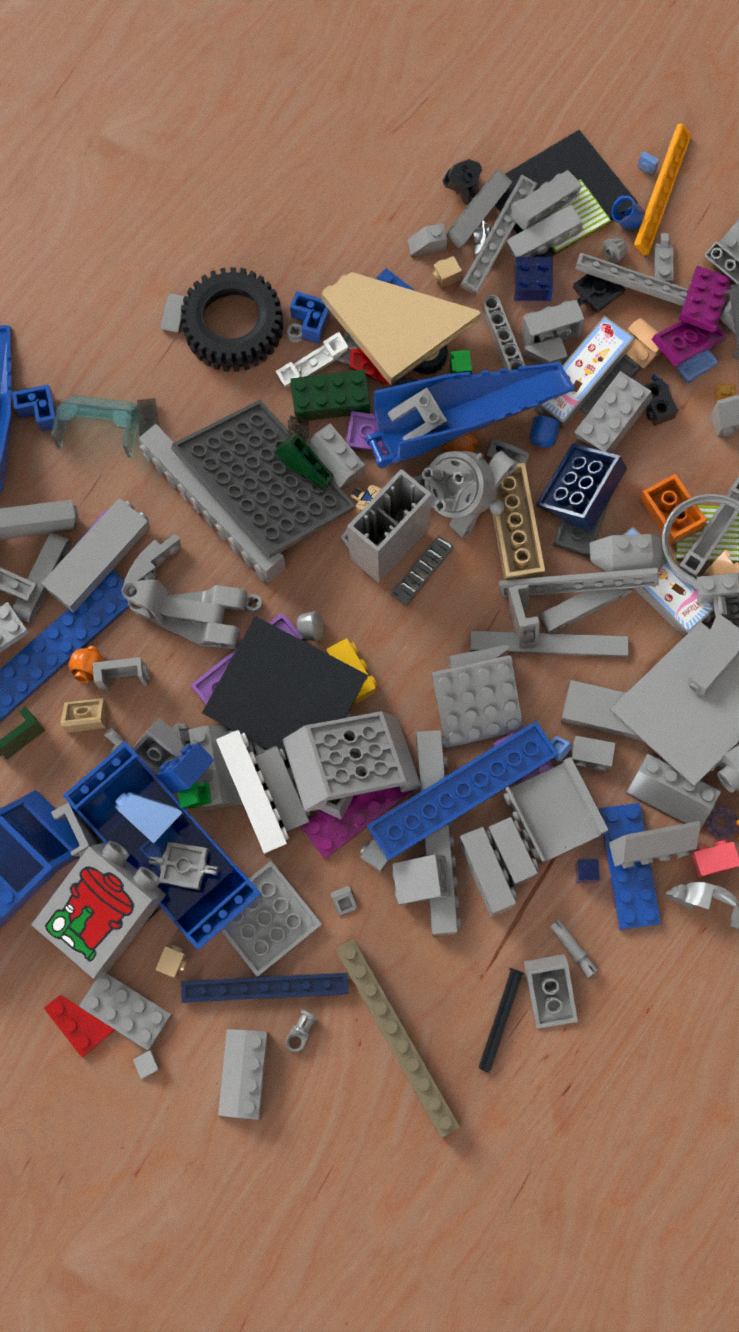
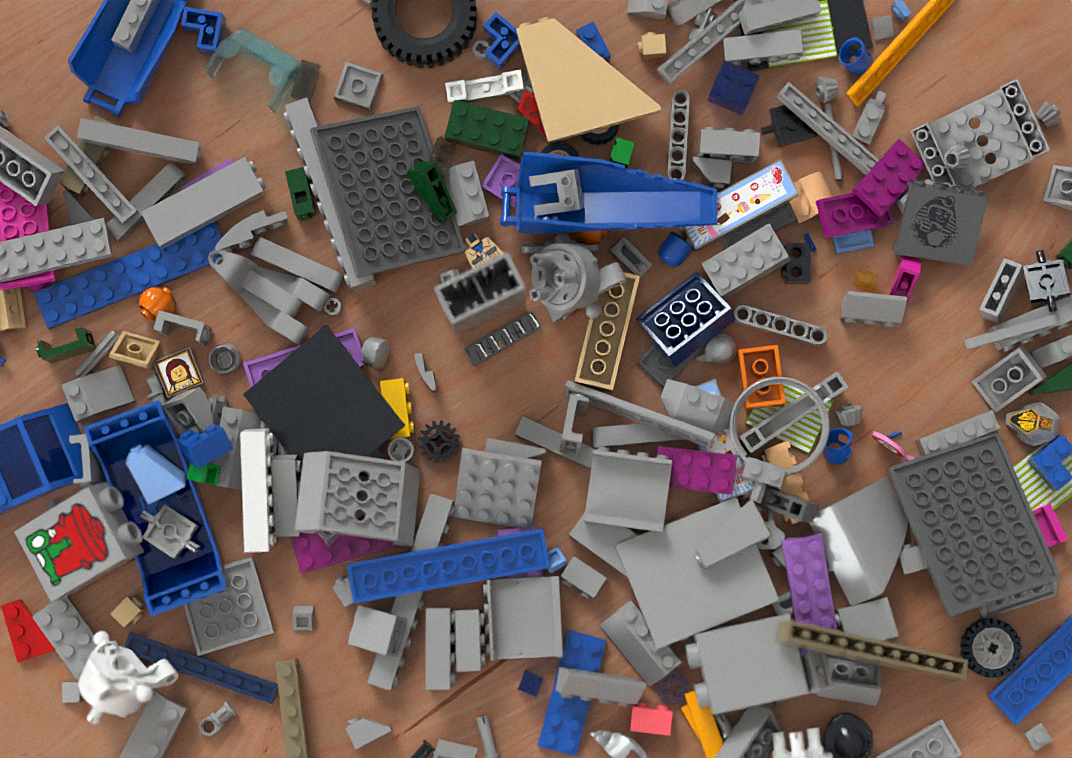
camera: 20 degrees right, 10 degrees up
(48, 733) = (97, 355): none -> light grey axle
(62, 767) = (98, 393): none -> light grey slope
(131, 719) = (179, 372): none -> tile
(171, 689) = (225, 359): none -> light grey hair
(183, 515) = (300, 194): none -> dark green brick
(190, 1030) = (118, 681): none -> white piece
(197, 405) = (358, 86): none -> light grey tile
(204, 577) = (297, 265): none -> light grey beam
(368, 629) = (428, 376): none -> light grey slope
(372, 701) = (401, 450): none -> light grey wheel
(396, 686) = (438, 450): none -> black gear
(449, 982) = (365, 730): none -> light grey slope
(599, 653) = (628, 489): none -> light grey panel
(623, 503) = (719, 349): none -> light grey hat
(638, 183) = (882, 27): none -> light grey slope
(647, 301) = (834, 153): none -> light grey bar
(652, 612) = (701, 470): none -> magenta plate
(675, 455) = (789, 324): none -> light grey beam

